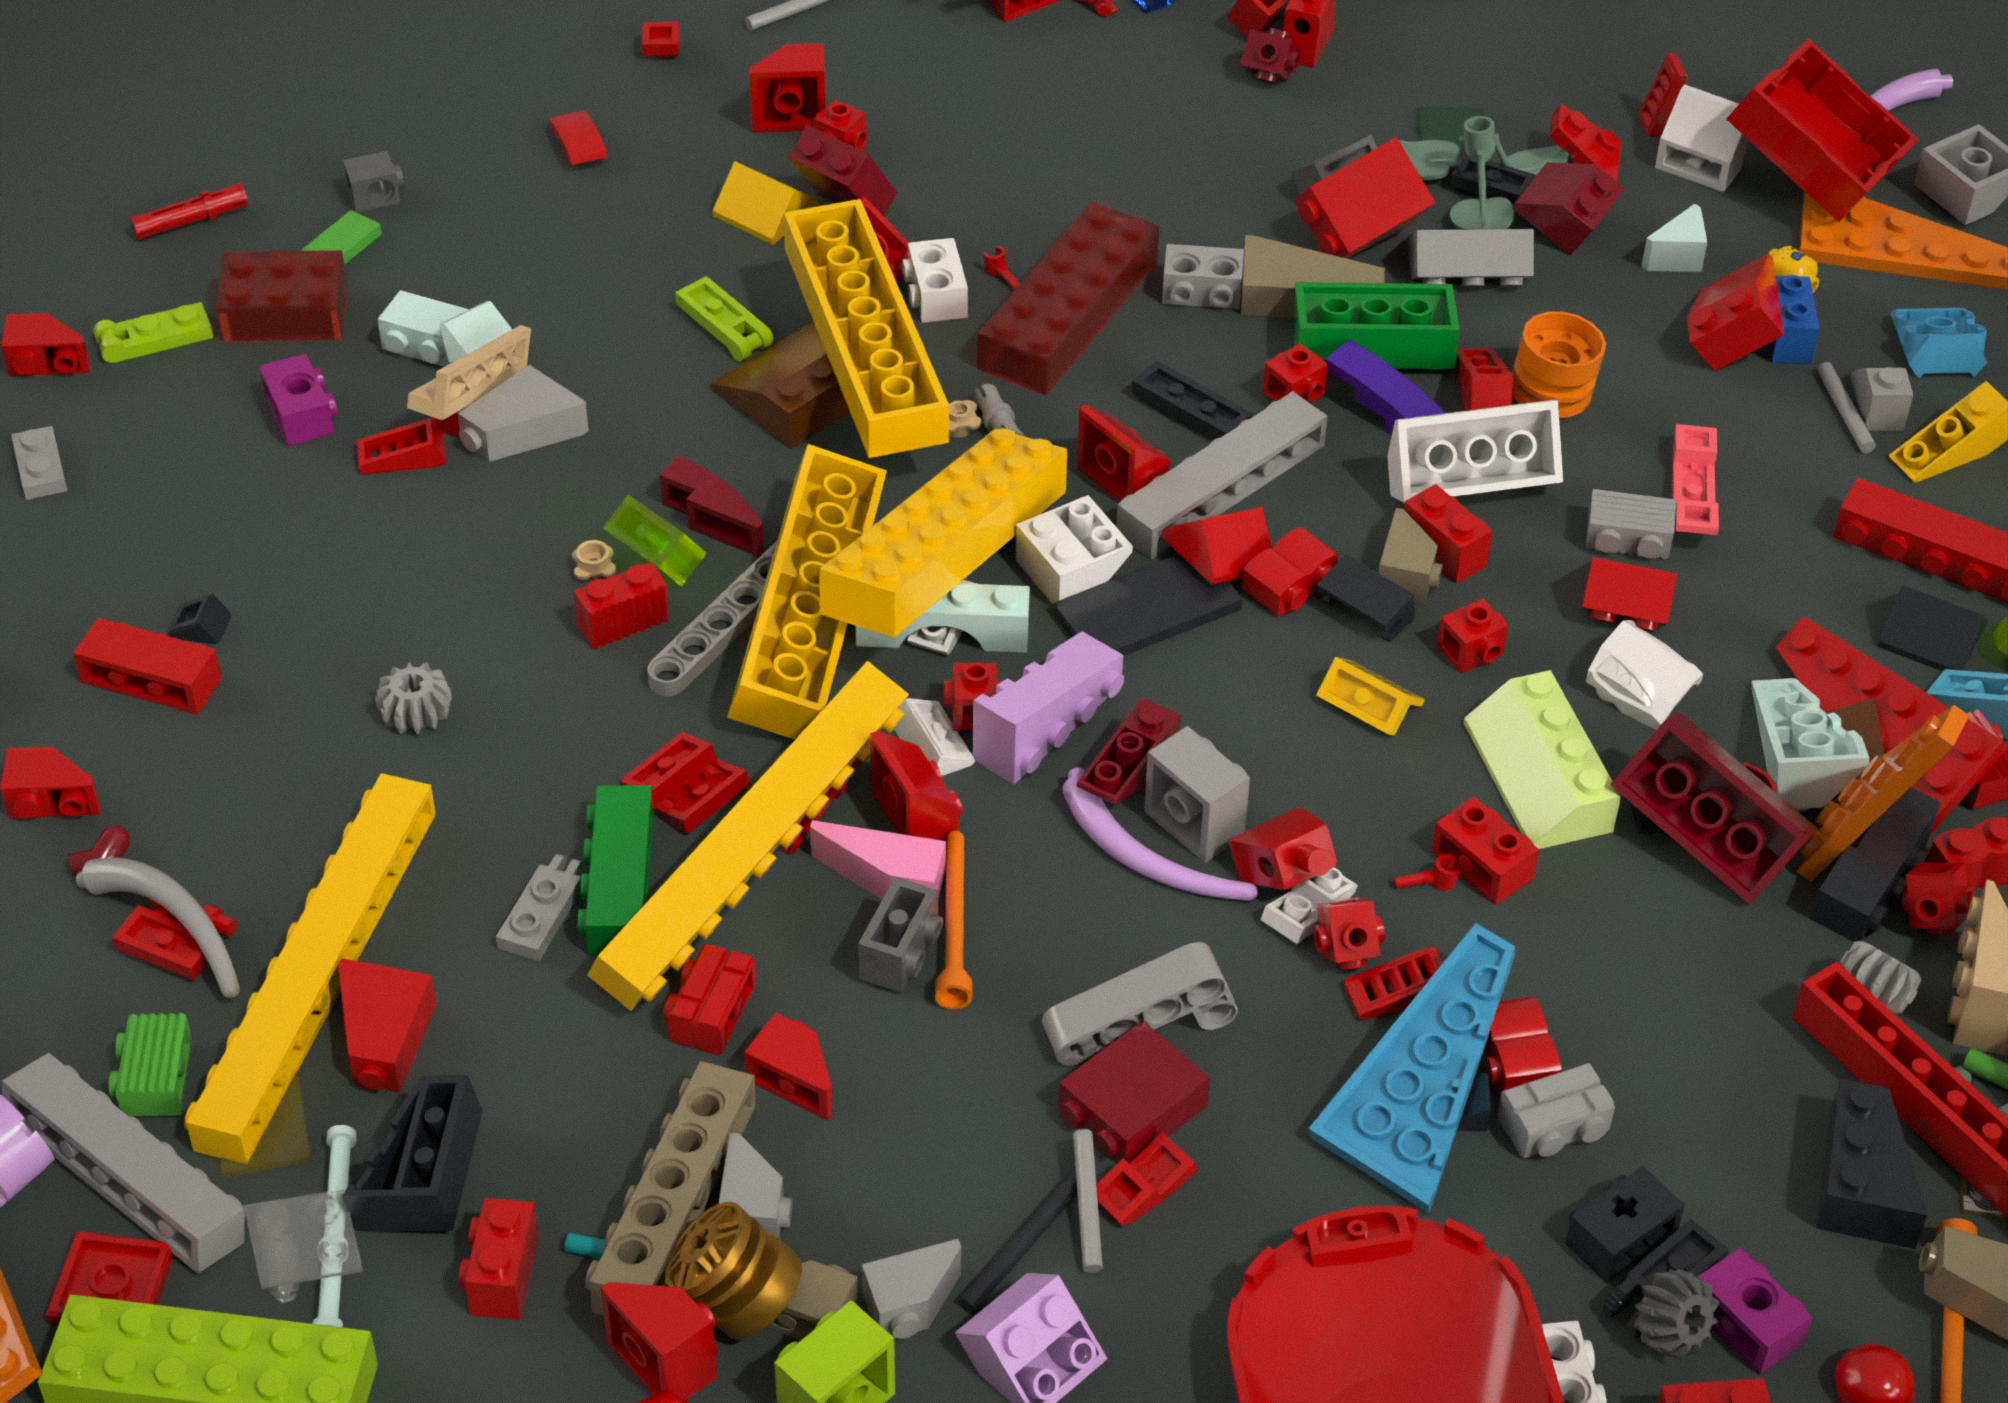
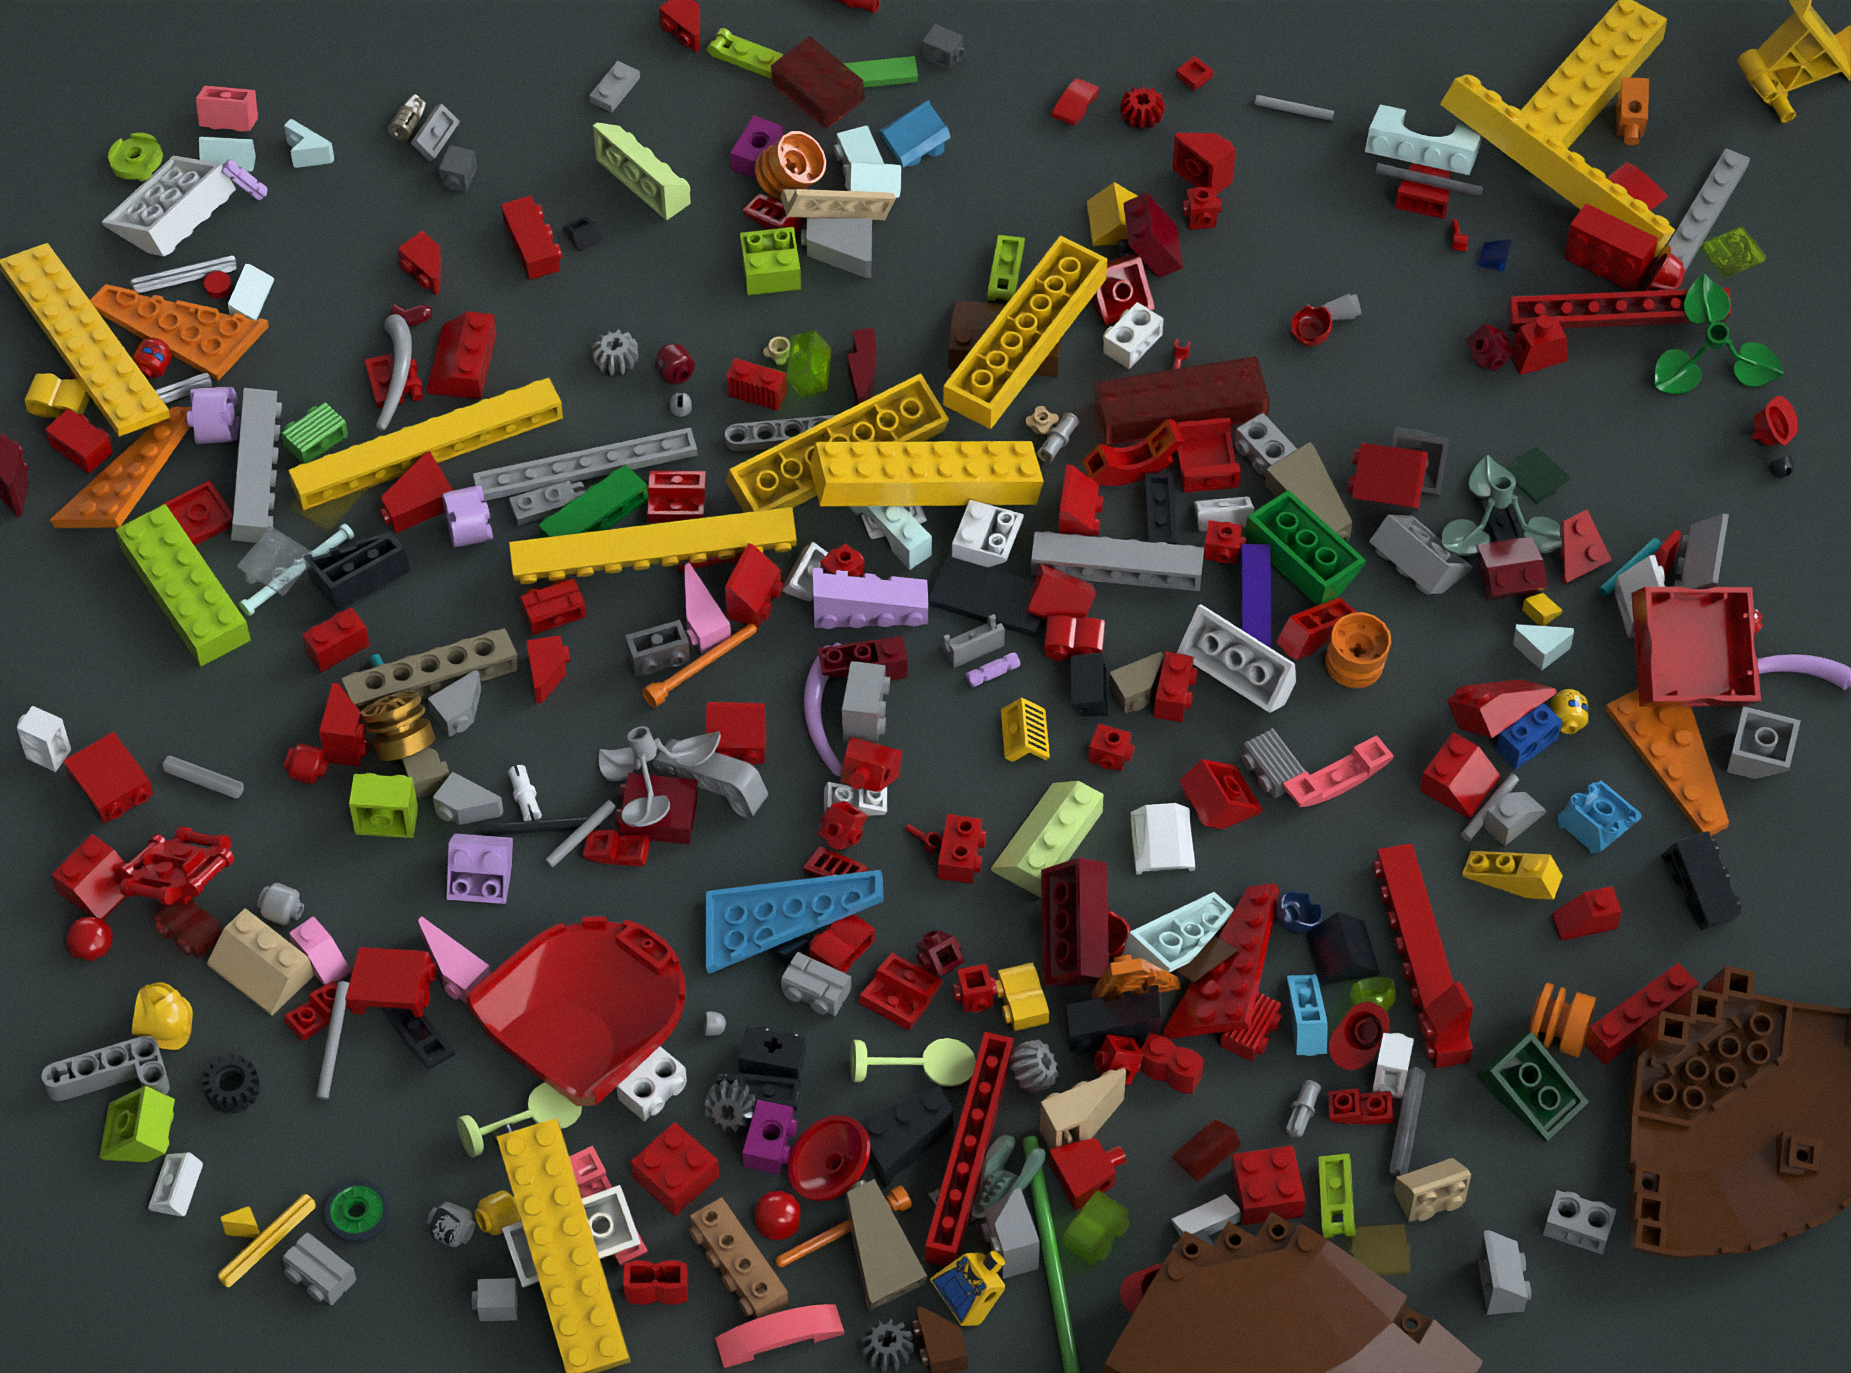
camera: 50 degrees right, 10 degrees up
(193, 510) = (640, 170): none -> yellowish green slope
(231, 840) = (463, 356): none -> red slope
(373, 377) = (790, 163): none -> orange wheel
(456, 267) = (915, 135): none -> dark azure slope
(469, 484) = (770, 261): none -> lime slope
(484, 987) = (467, 516): none -> lavender brick
(499, 657) = (674, 363): none -> dark red head
(533, 837) = (586, 463): none -> light grey plate
(551, 697) = (680, 411): none -> light grey hinge
(654, 96) = (1142, 107): none -> red gear
(960, 1220) = (524, 793): none -> white pin
(1090, 150) = (1311, 325): none -> red hair
(1091, 121) = (1344, 307): none -> light grey cone
(1109, 934) = (741, 730): none -> red slope
(1109, 988) = (618, 763): none -> light grey plant
(1113, 362) = (1129, 464): none -> red arch
(1158, 328) = (1207, 456): none -> red panel
(1197, 656) = (974, 642): none -> light grey hinge
(1244, 362) = (1223, 510): none -> white slope
(1253, 667) = (993, 669): none -> lavender axle
(1519, 1251) = (713, 1023): none -> light grey hinge
(1627, 960) = (939, 952): none -> dark red brick
(1629, 224) = (1541, 609): none -> yellow slope
(1635, 1040) = (900, 991): none -> red slope
(1640, 137) = (1646, 551): none -> teal piece
(1708, 60) = (1702, 553): none -> light grey slope
(1711, 960) = (974, 988): none -> red brick
(1755, 929) = (1022, 996): none -> yellow brick
(1776, 1064) = (943, 1061): none -> yellowish green piece
(1785, 401) = (1459, 776): none -> red slope
(1843, 1229) = (828, 1158): none -> red dish
(1862, 627) = (1297, 912): none -> dark blue hair

